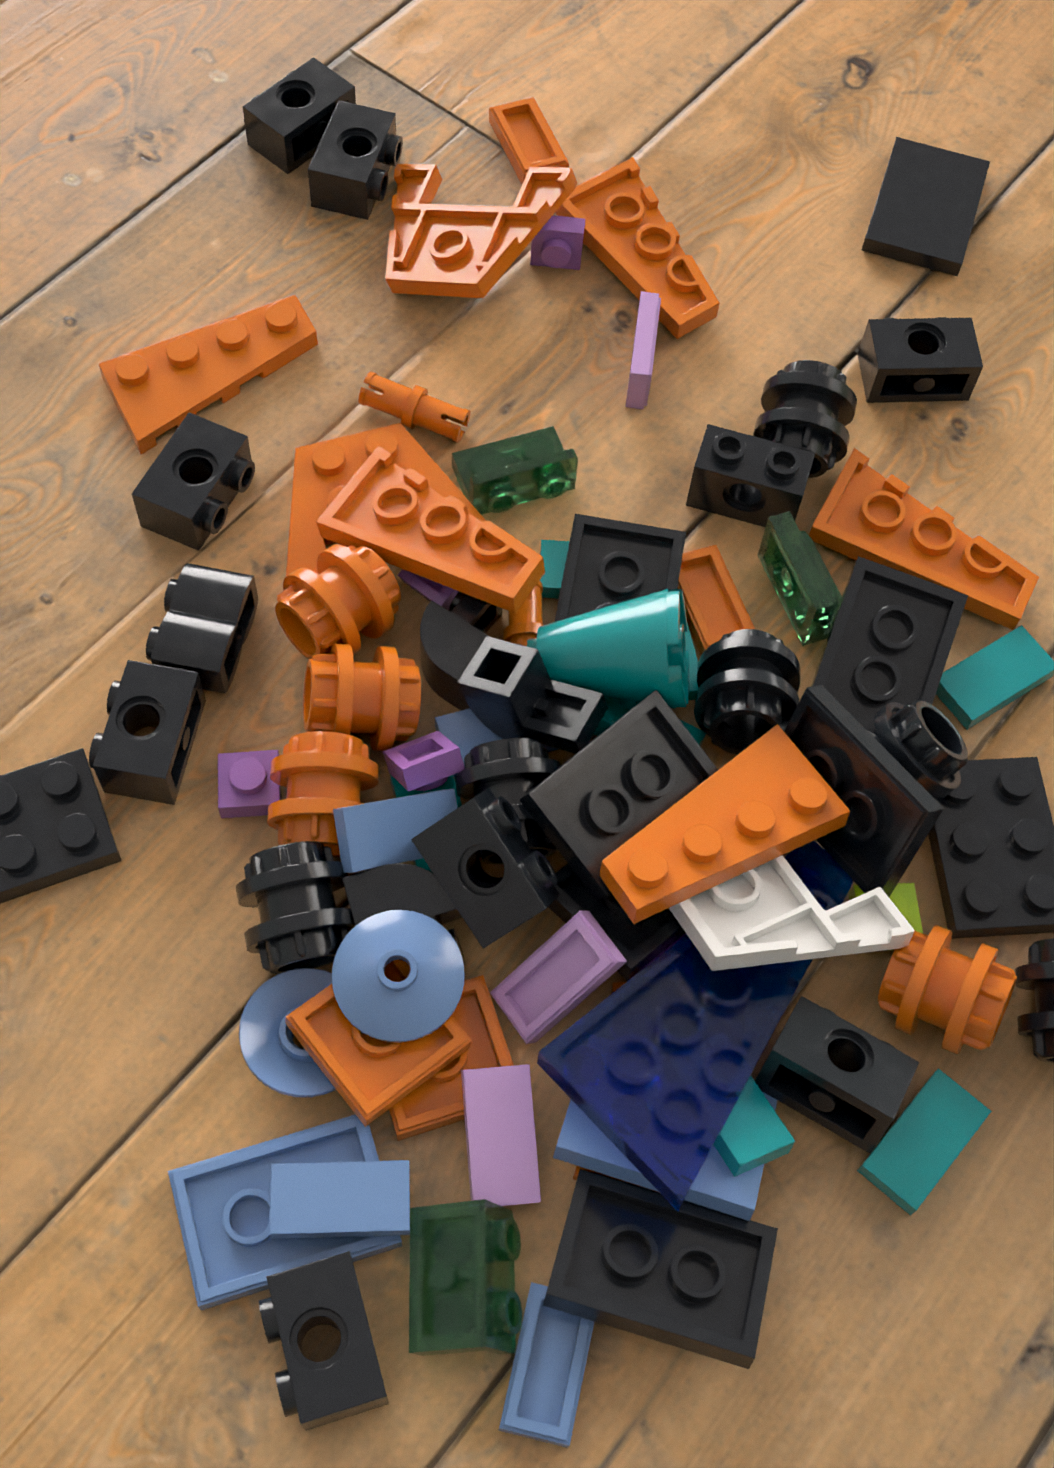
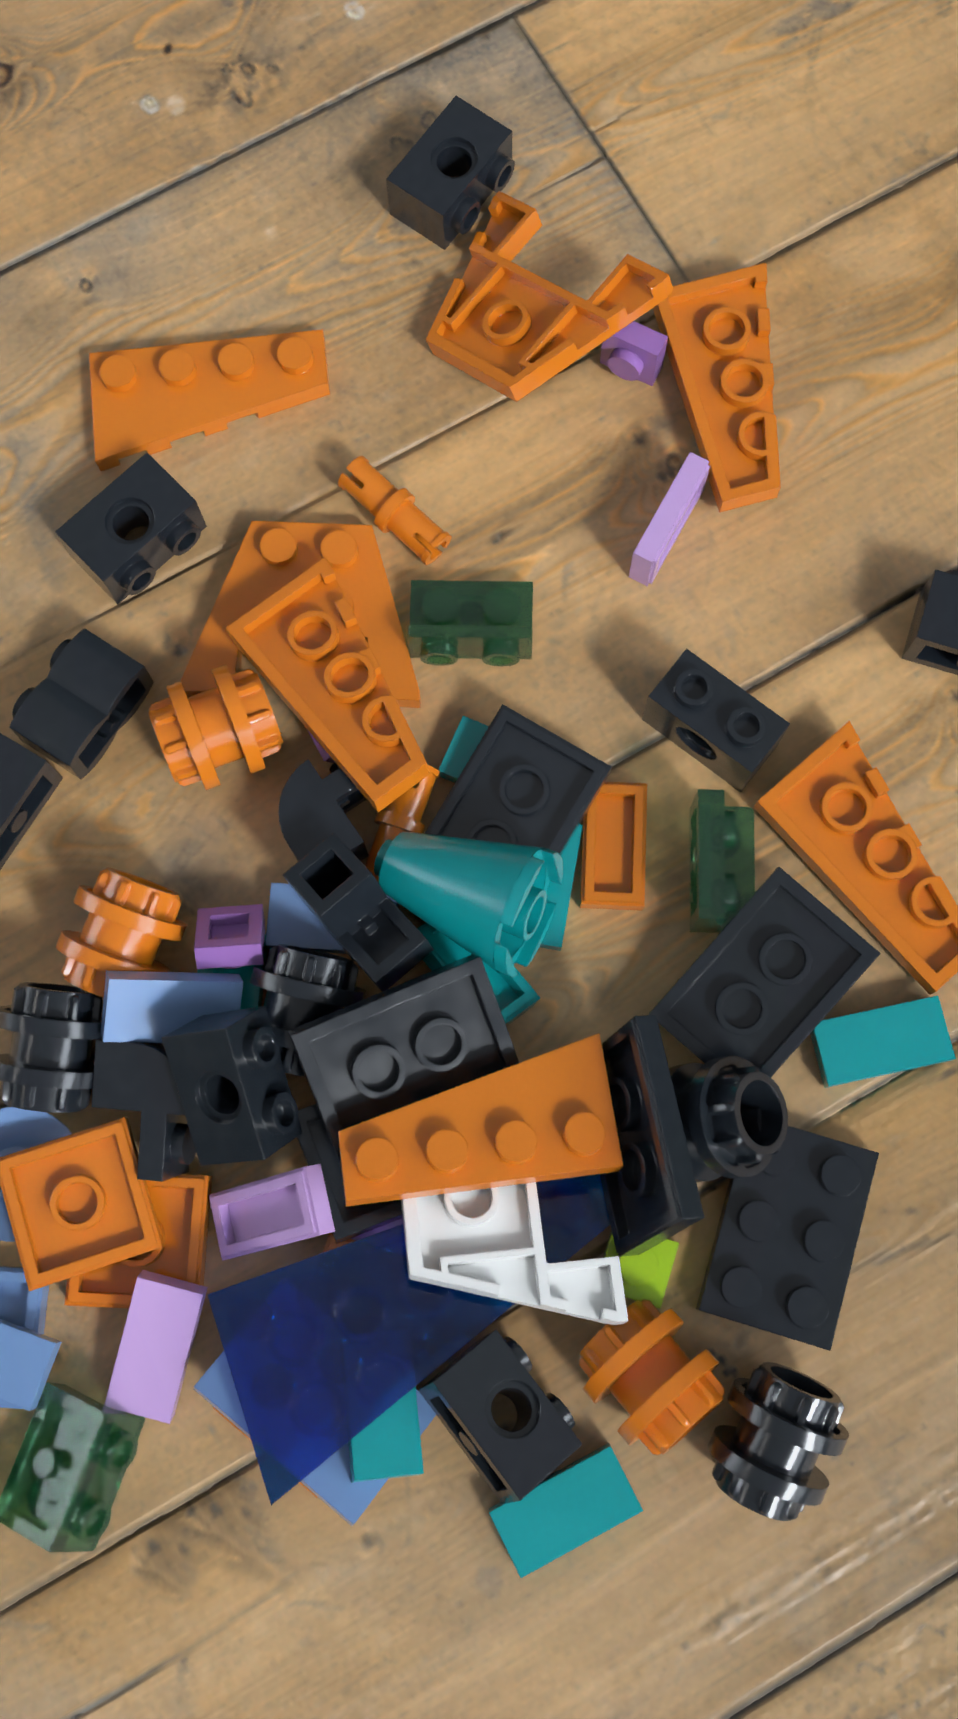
camera: 30 degrees right, 15 degrees up
(246, 783) = (58, 882): medium lavender plate -> none
(294, 113) = (408, 90): black brick -> none
(362, 696) = (198, 840): orange piece -> none
(403, 1008) = (141, 1156): medium blue dish -> none
(526, 136) = (662, 200): orange tile -> none
(546, 1372) = (117, 1575): medium blue tile -> none
(661, 1271) = (254, 1561): black plate -> none
(745, 688) = (600, 965): black piece -> none
(809, 411) = (809, 666): black piece -> none

